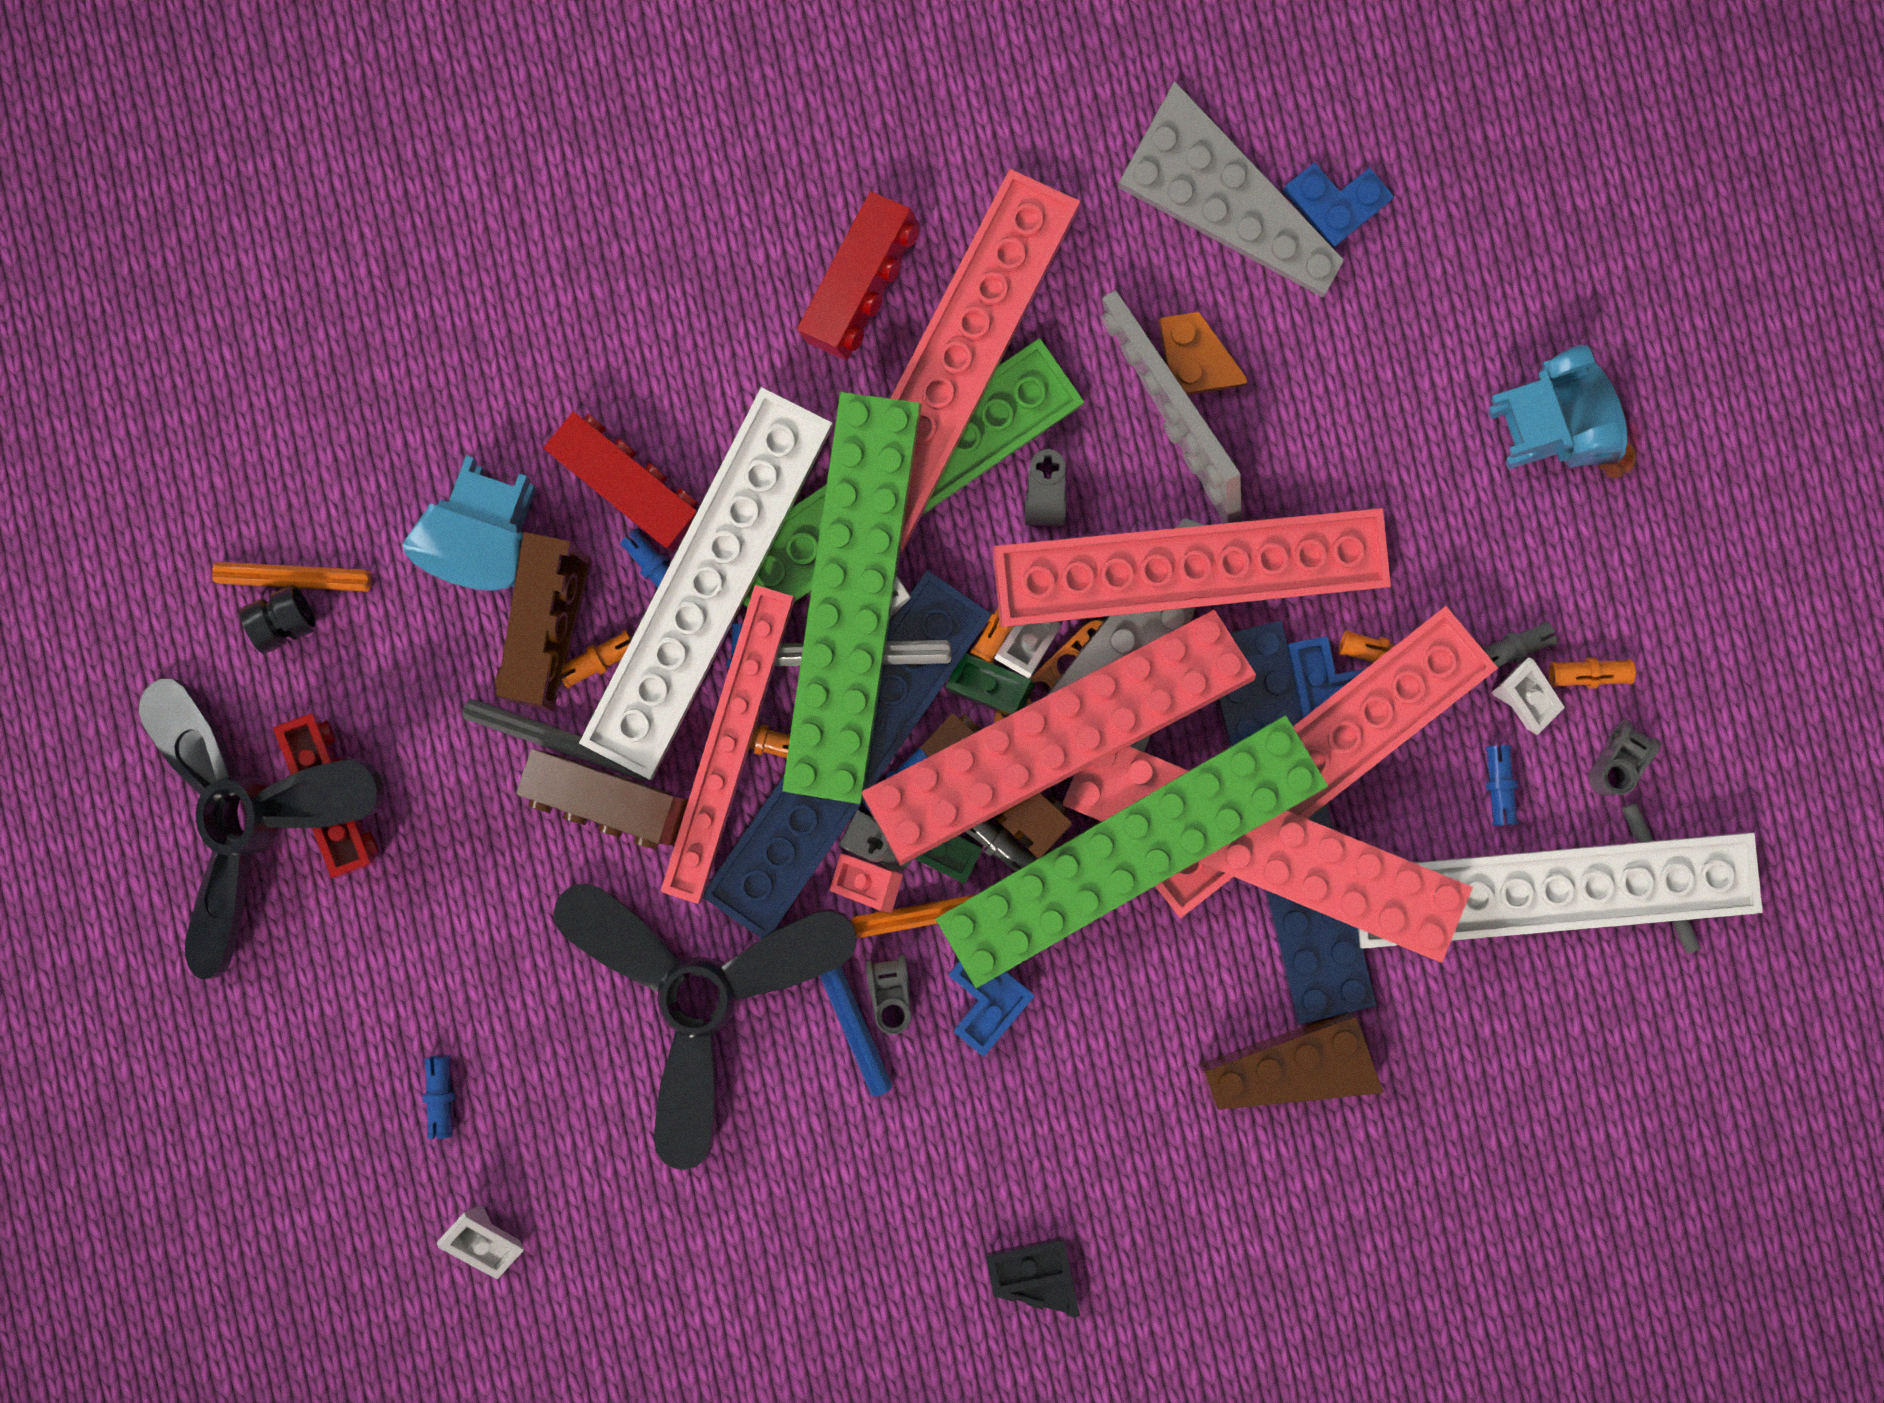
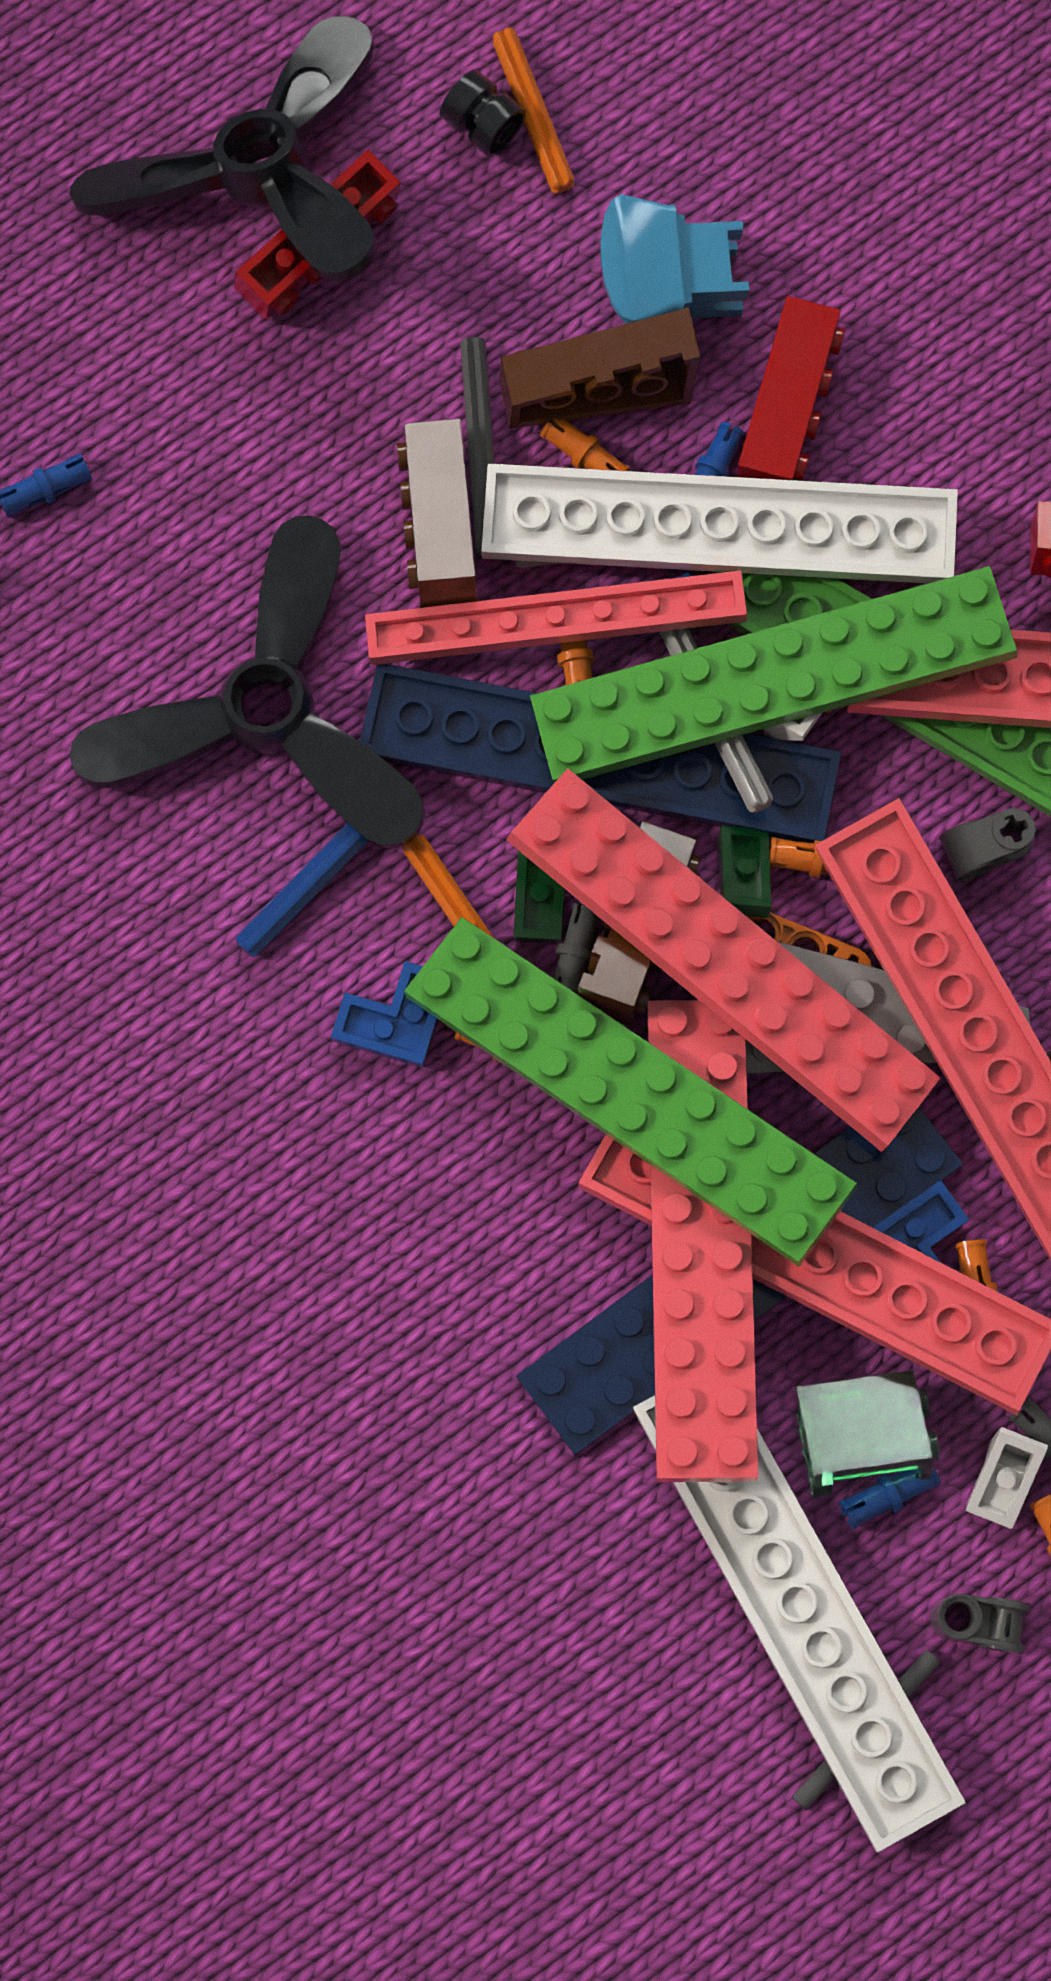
camera: 75 degrees right, 10 degrees down
(866, 882) = (469, 833): coral slope -> none
(867, 841) = (511, 807): dark grey piece -> none
(889, 991) = (359, 907): dark grey piece -> none
(1026, 646) = (806, 891): white slope -> none
(1034, 1274) = (109, 1199): black wing -> none
(1297, 1066) = (472, 1394): reddish brown wedge -> none
(1455, 784) = (864, 1429): none -> clear green panel

